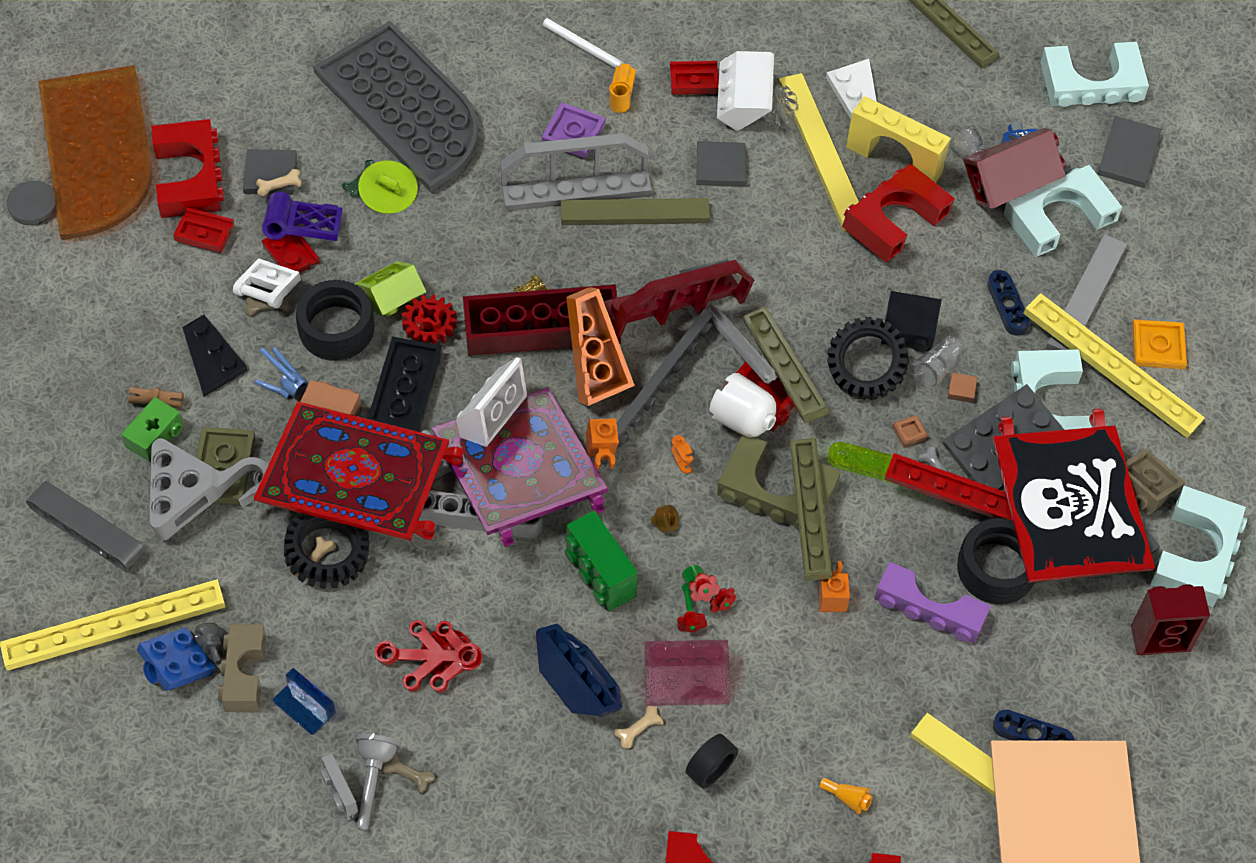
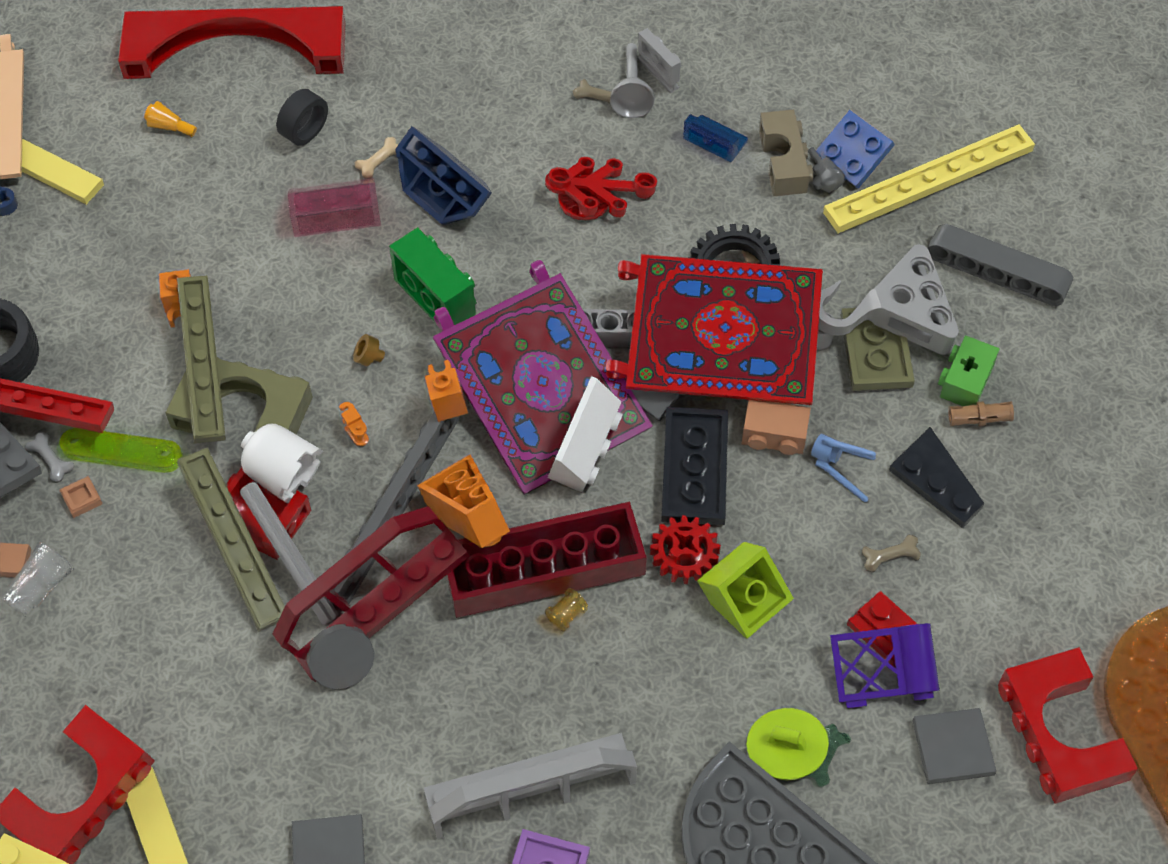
camera: 175 degrees right, 0 degrees up
(203, 230) = (1007, 637): red plate -> none
(267, 186) = (920, 724): tan piece -> none
(270, 276) = (897, 577): white plate -> none
(328, 295) = (810, 494): black tyre -> none
(635, 211) = (442, 755): olive tile -> none
(699, 587) = (330, 288): red plant -> none
(857, 330) = (126, 584): black tyre -> none
(914, 318) = (69, 620): black slope -> none
(961, 618) = (37, 288): medium lavender arch -> none

